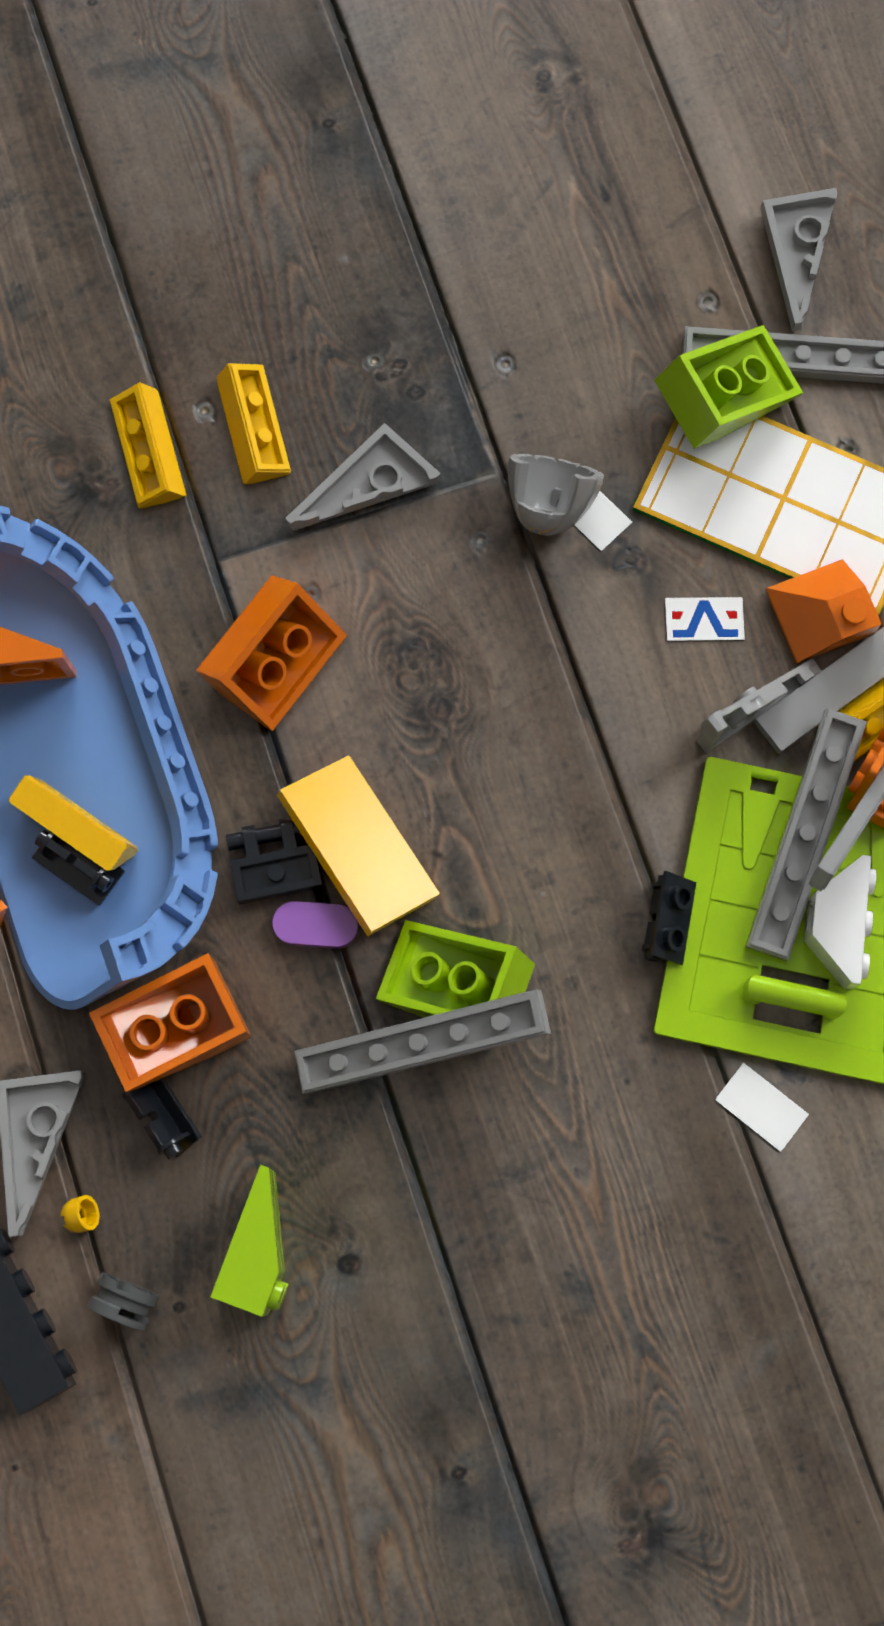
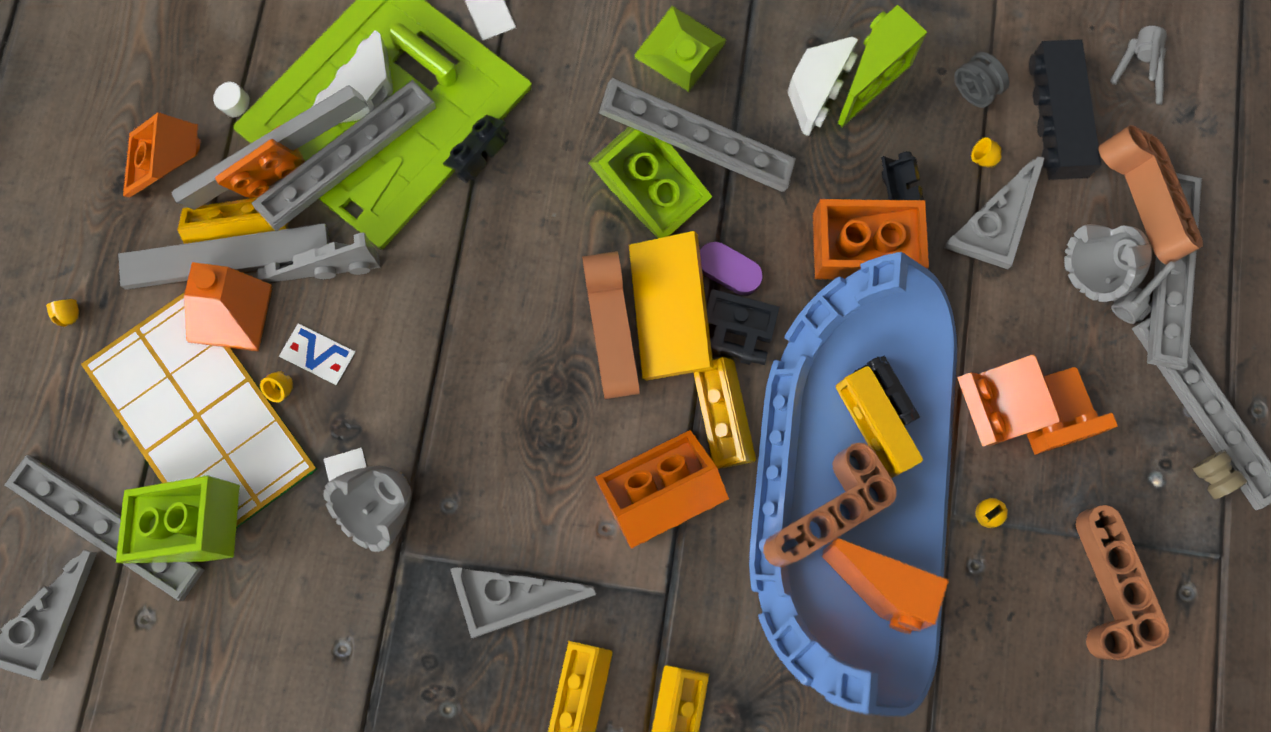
camera: 150 degrees left, 0 degrees up
(88, 700) = (828, 516): none -> nougat beam
(241, 763) = (724, 414): none -> yellow slope
(319, 1203) = (819, 79): none -> white slope
(434, 821) = (610, 325): none -> nougat beam
(506, 1170) = (680, 48): none -> lime slope
(720, 561) = (272, 382): none -> yellow hinge

